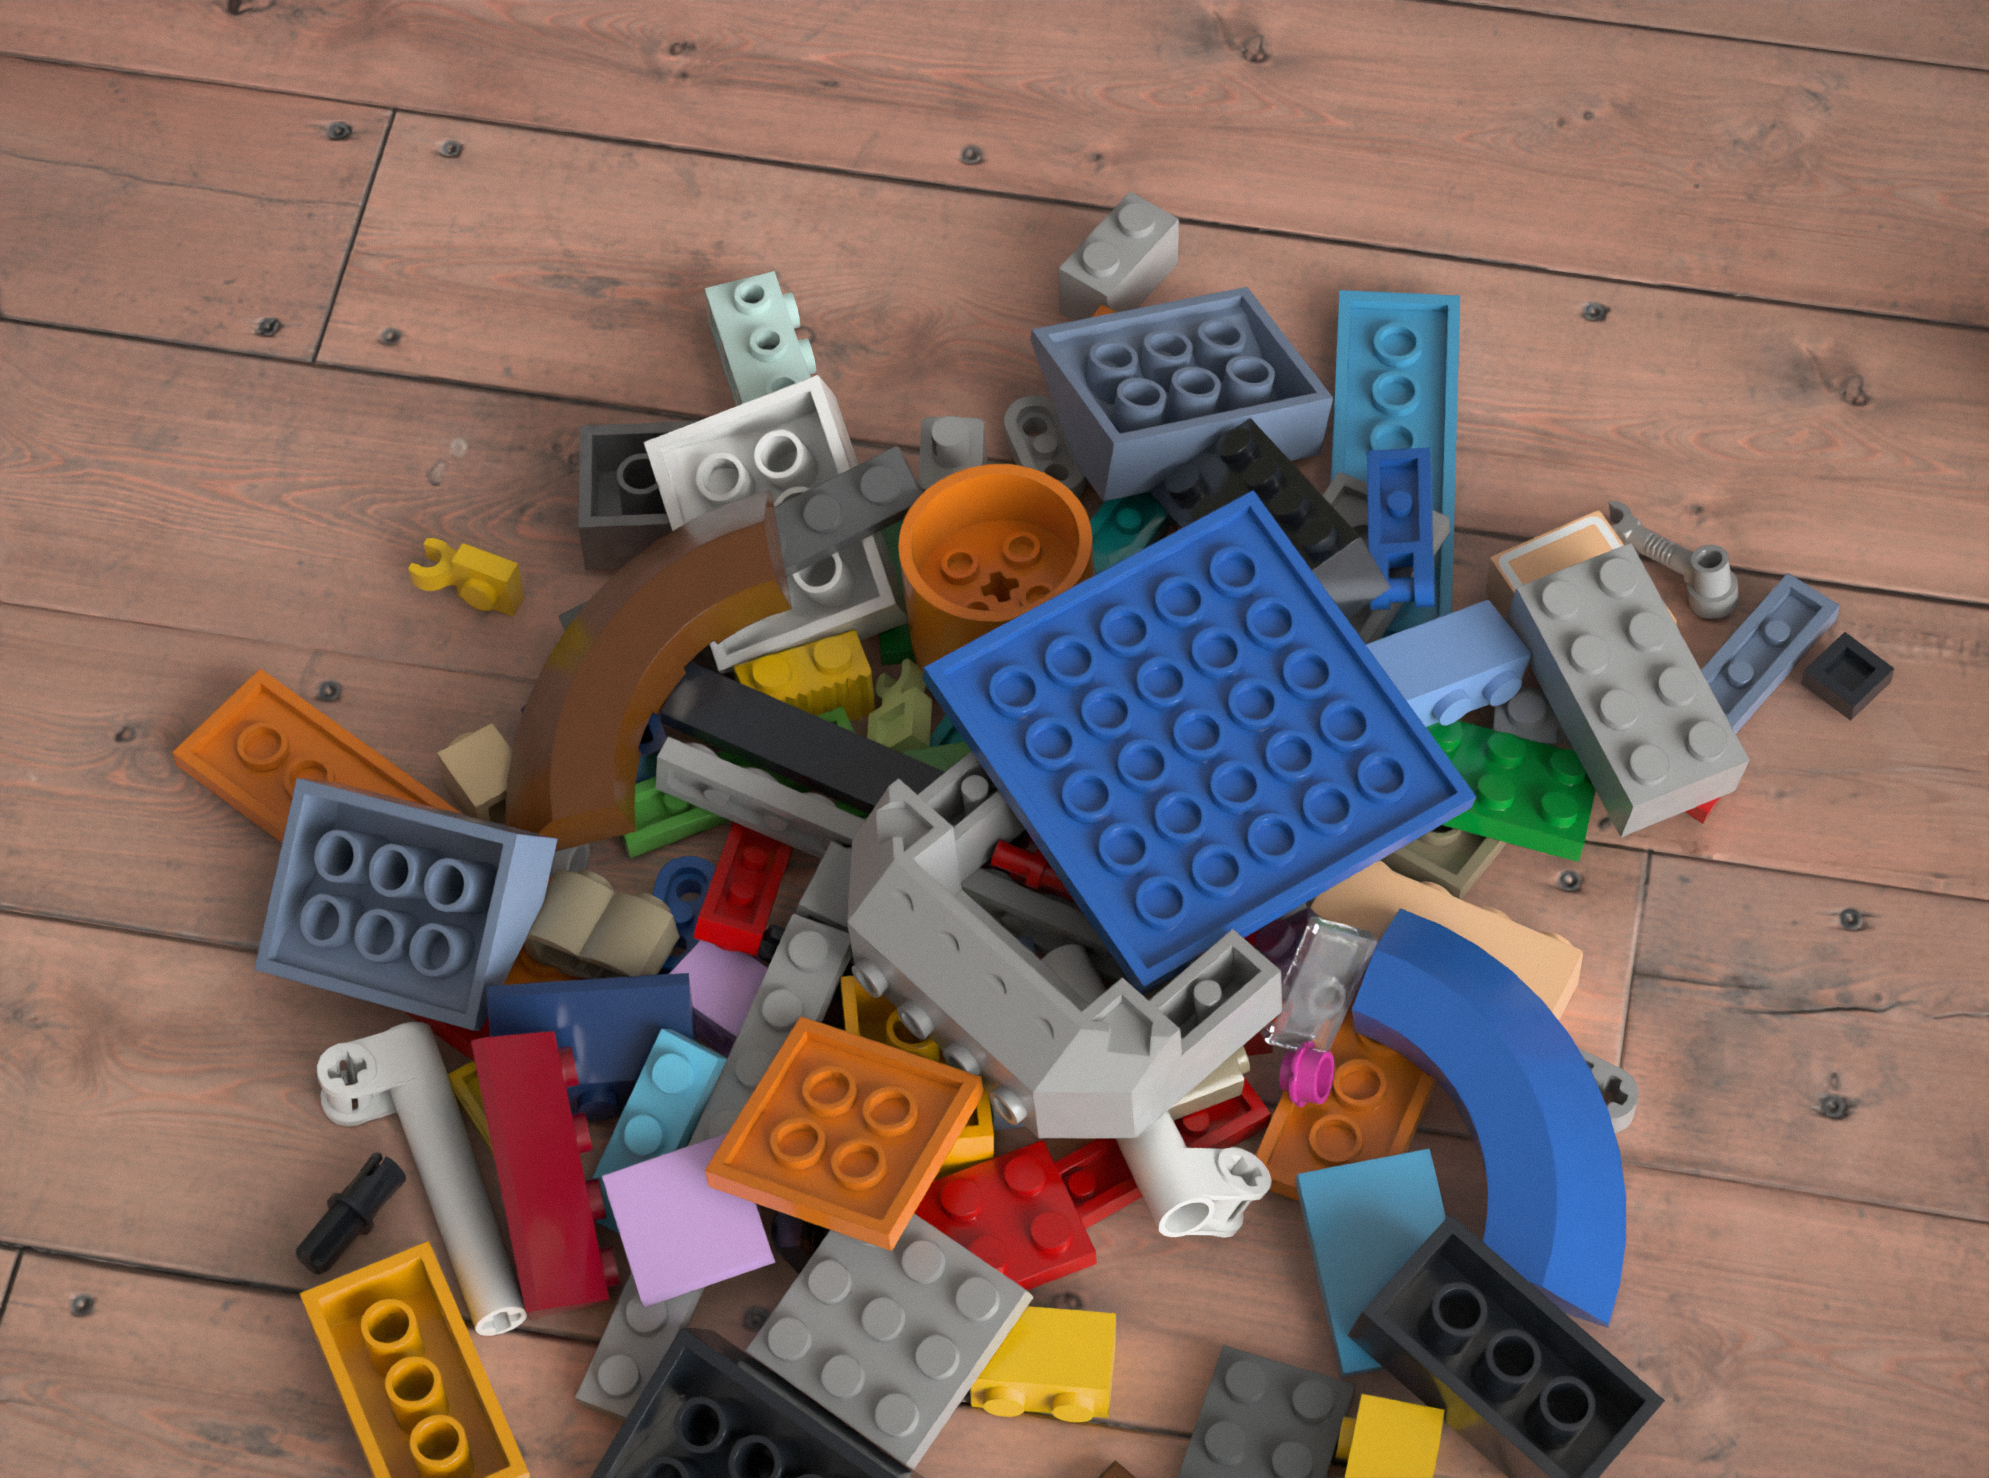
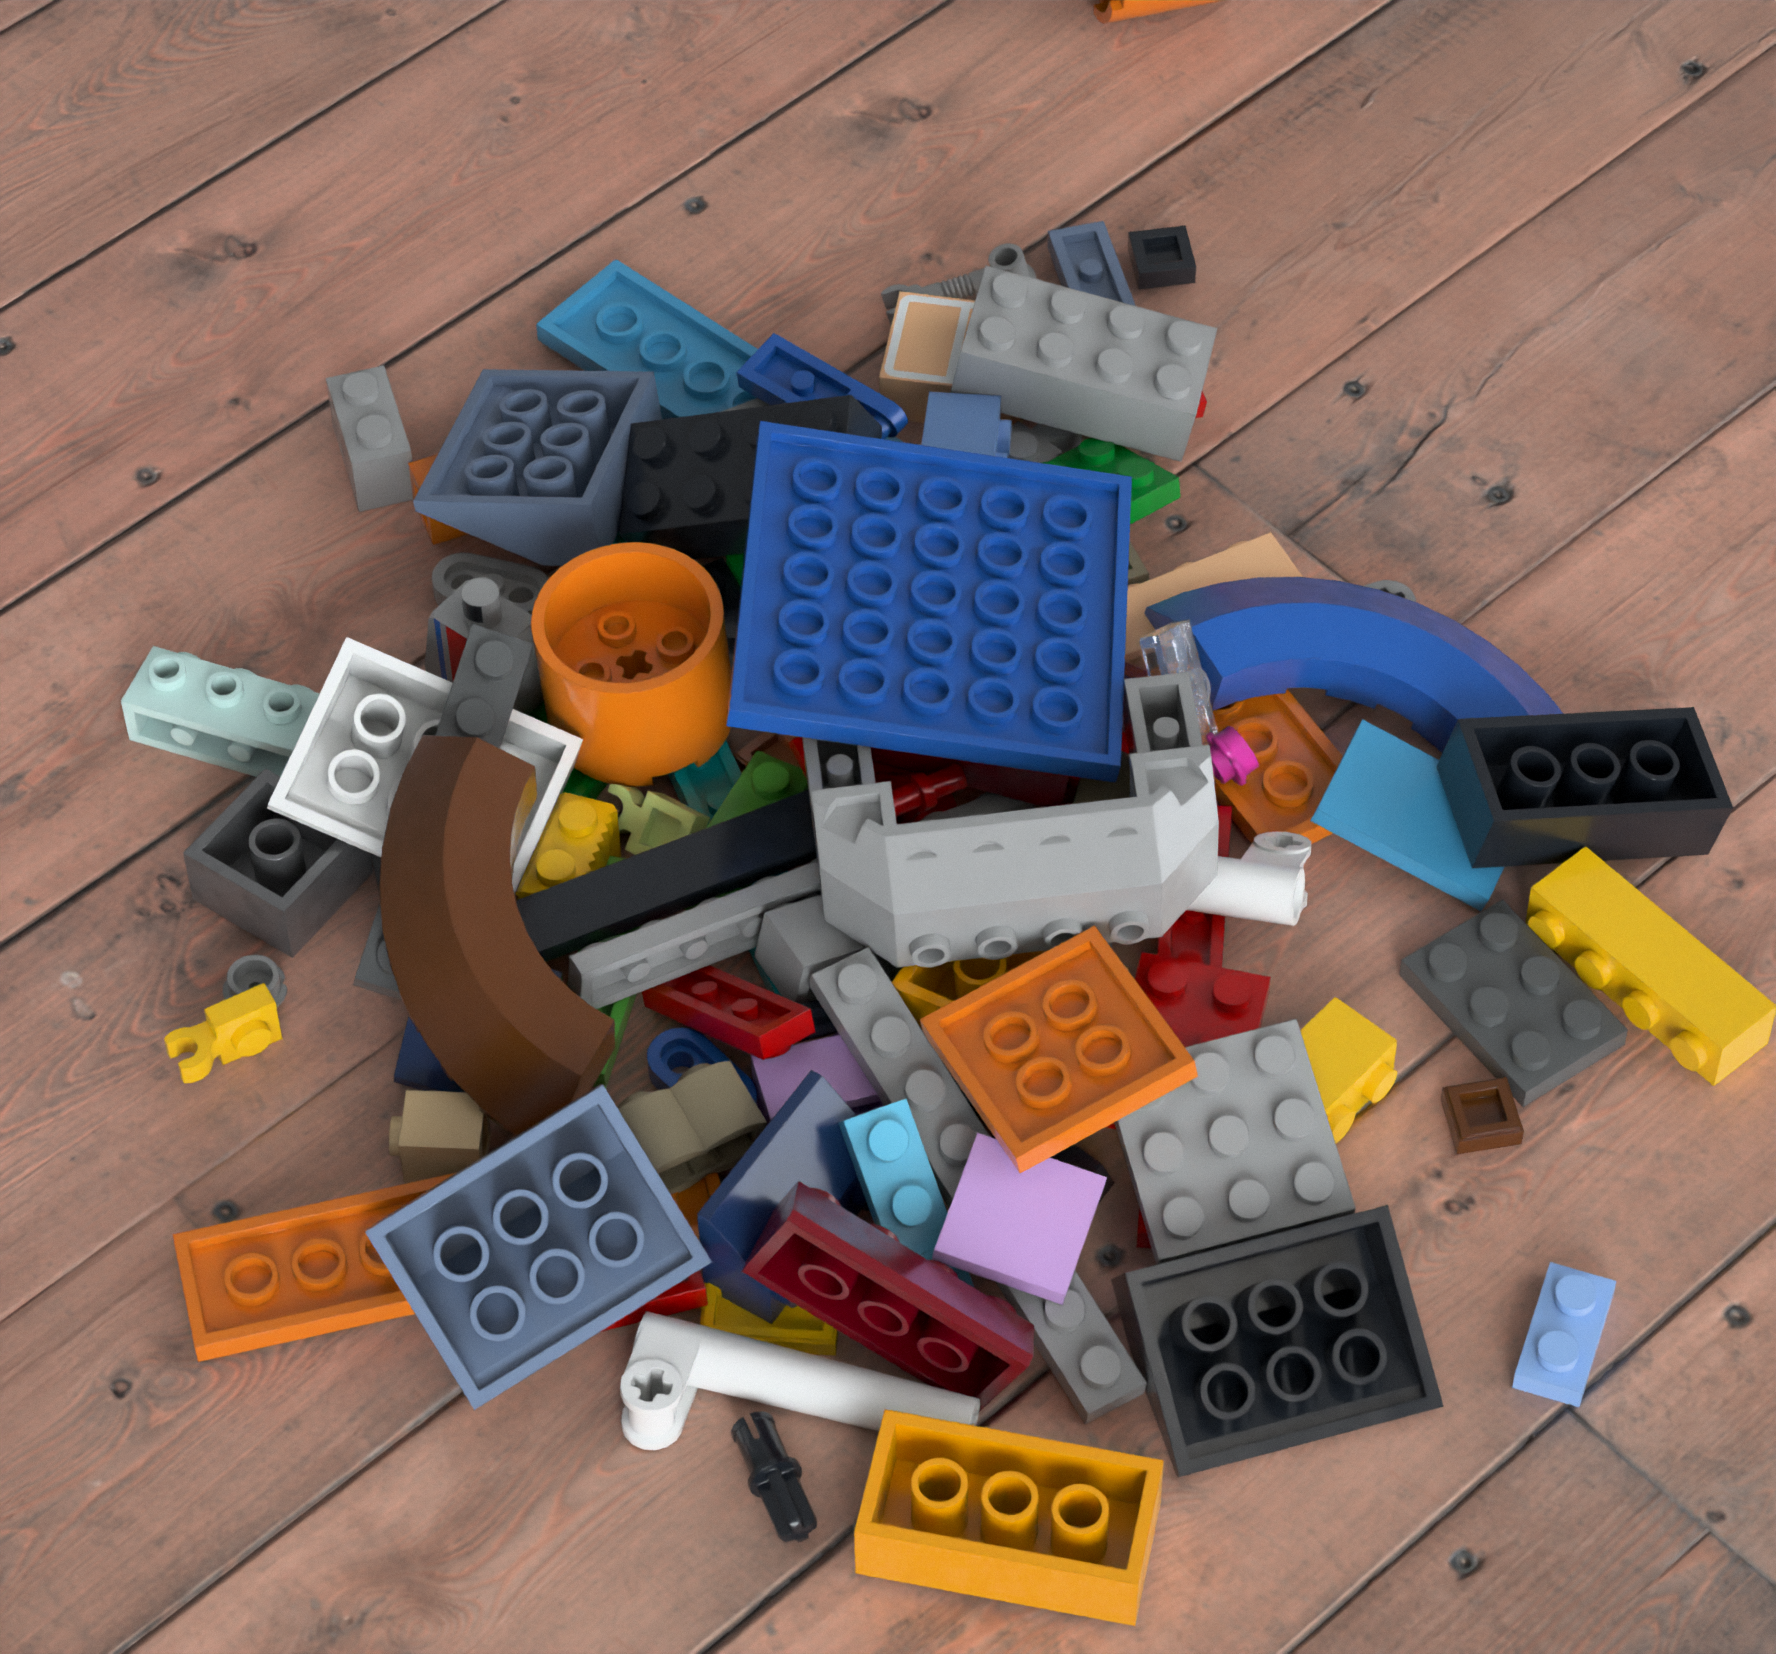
camera: 55 degrees left, 5 degrees down
(537, 550) = (253, 971): none -> light grey plate

